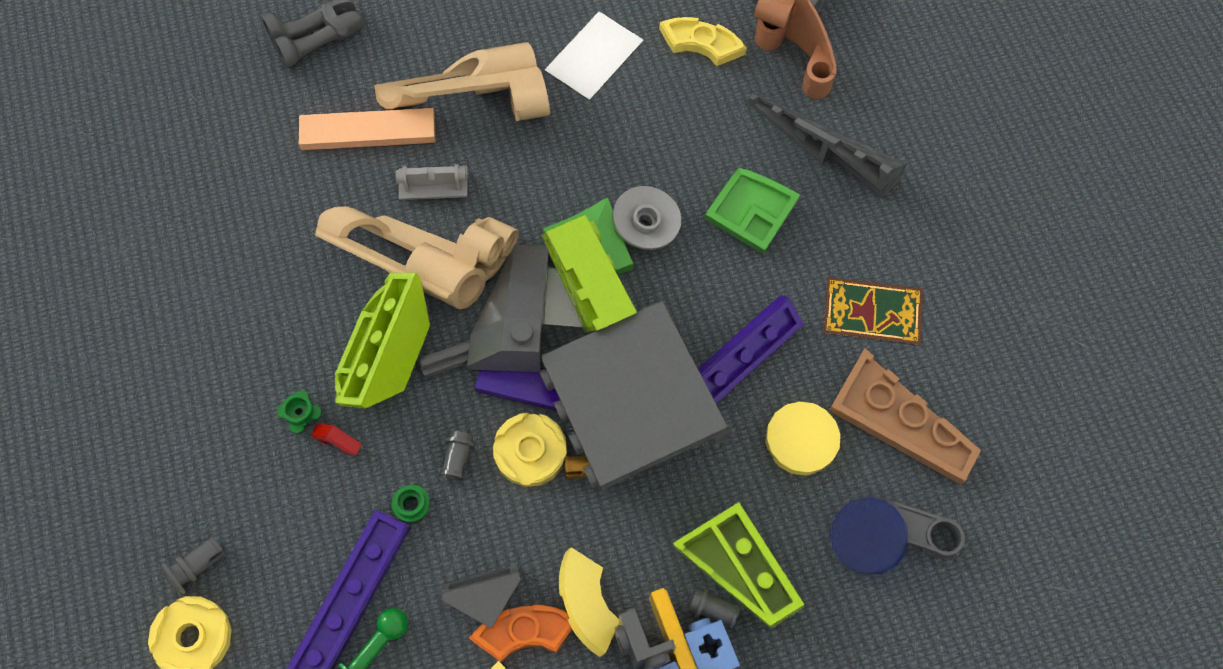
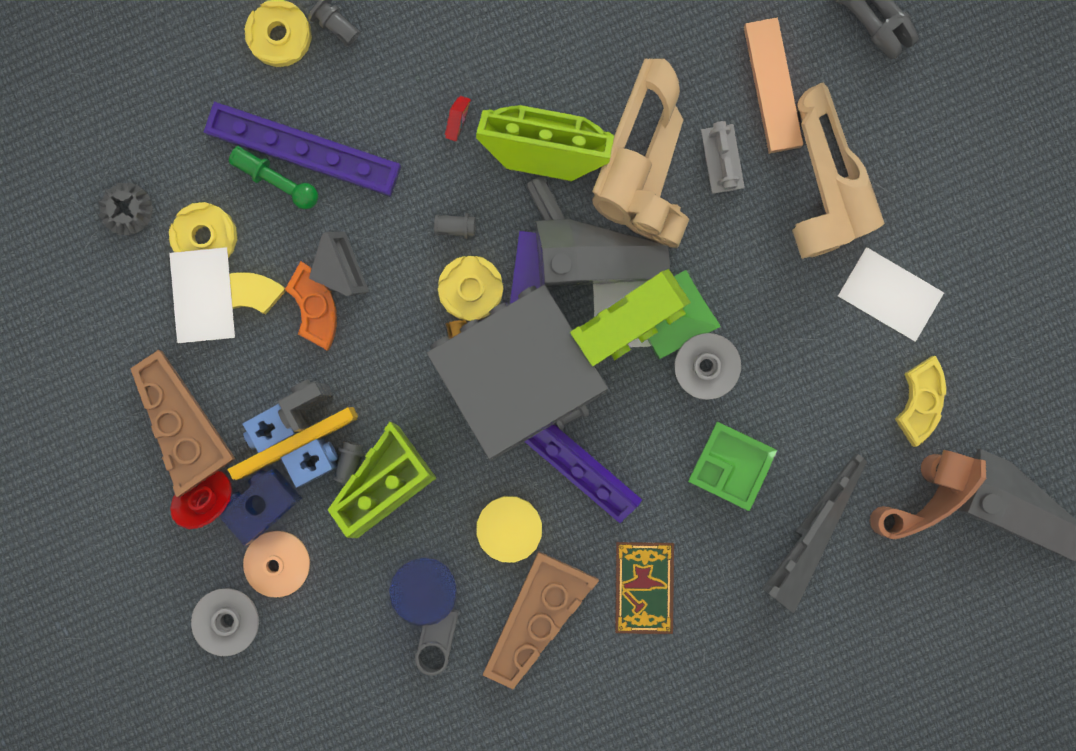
camera: 85 degrees right, 20 degrees up
(291, 404) = (478, 71): green plate -> none
(403, 495) = (408, 183): green plate -> none
(584, 602) = (339, 352): light yellow tile -> none

